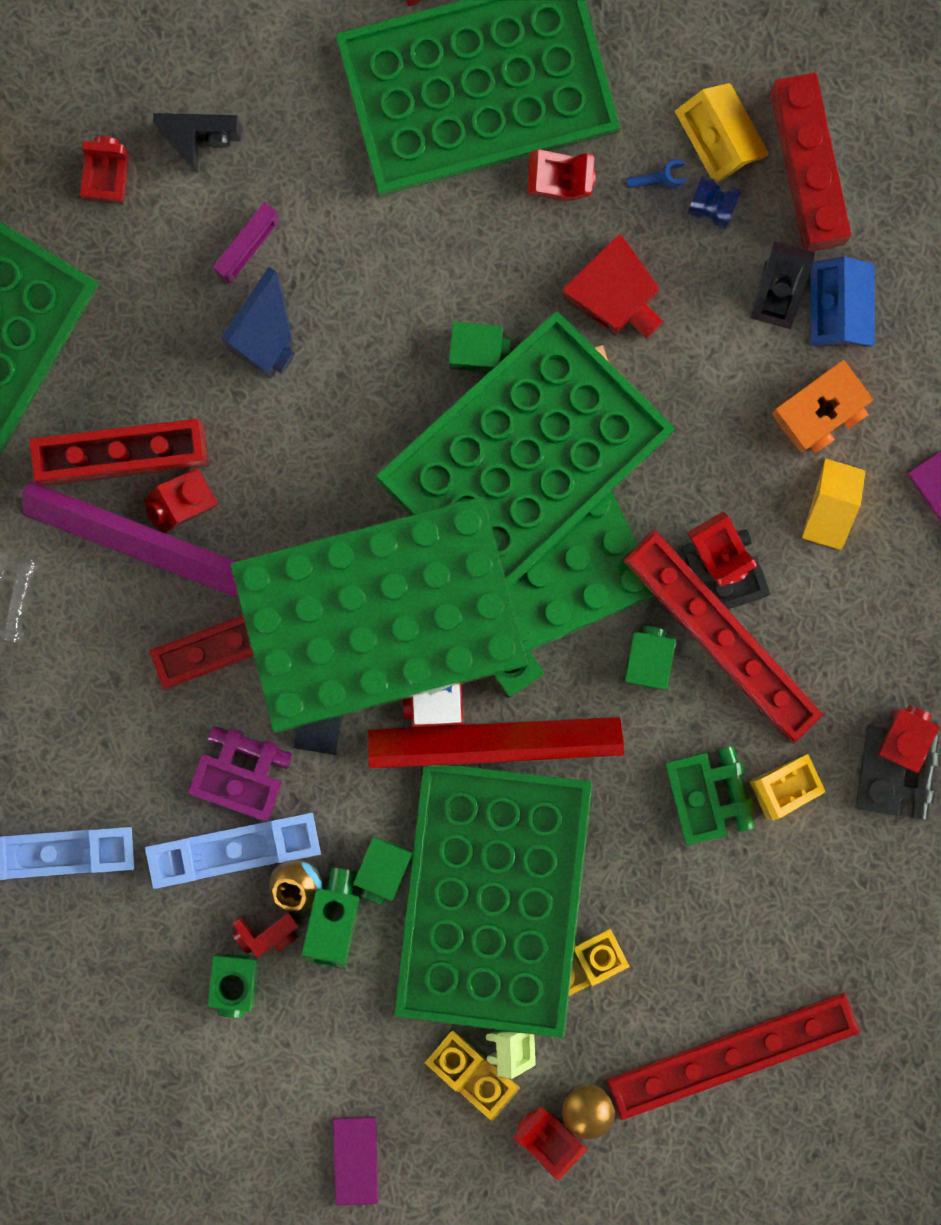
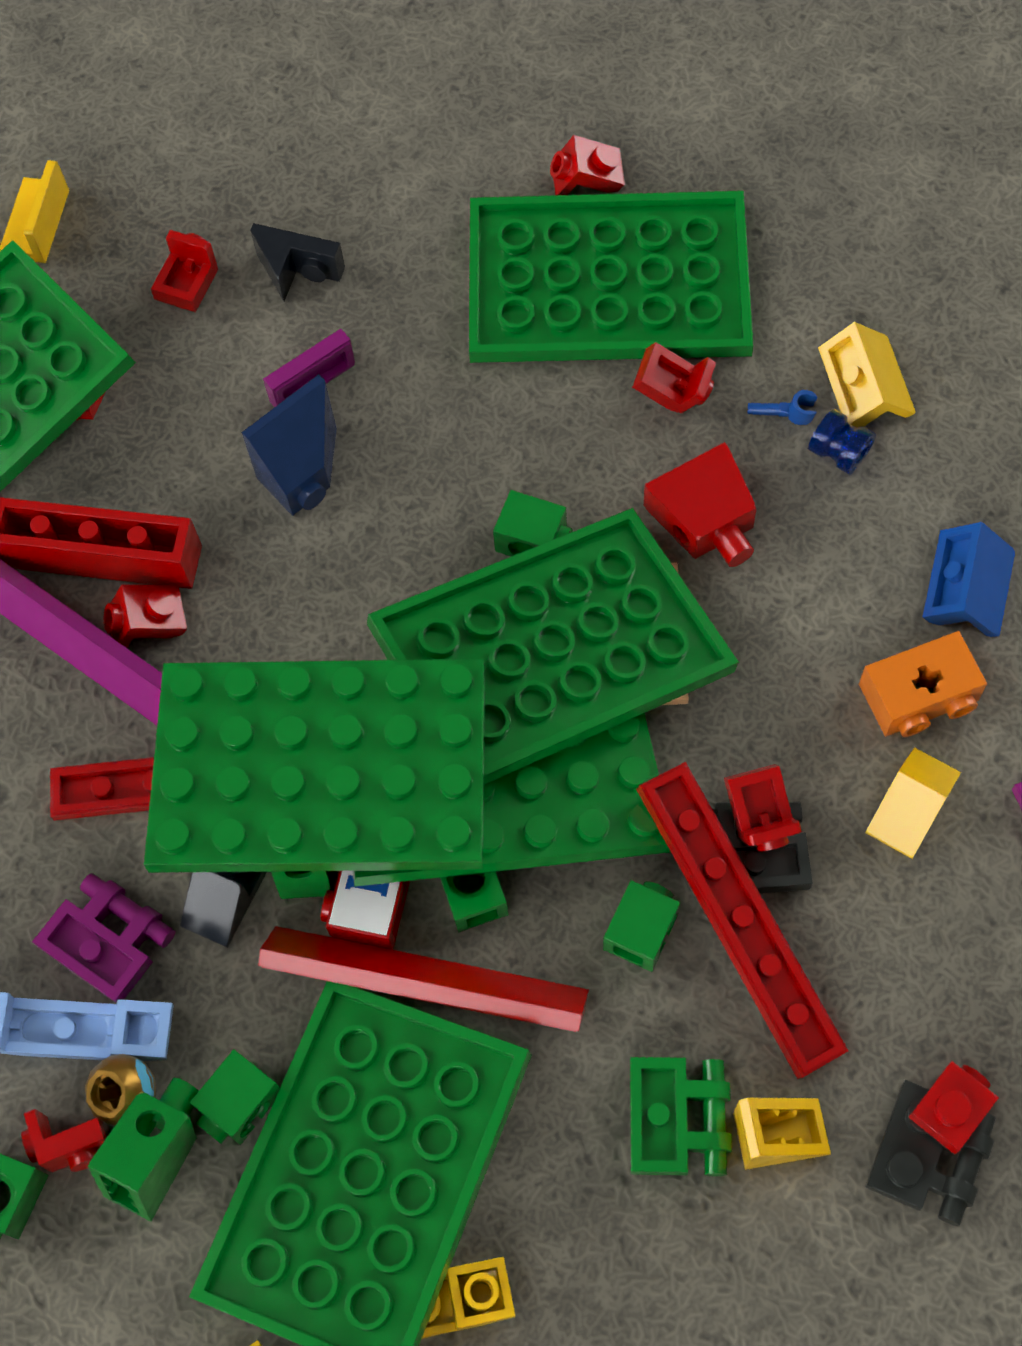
camera: 15 degrees right, 20 degrees down
(782, 284) = (902, 539): black slope -> none
(810, 162) = (961, 425): red brick -> none

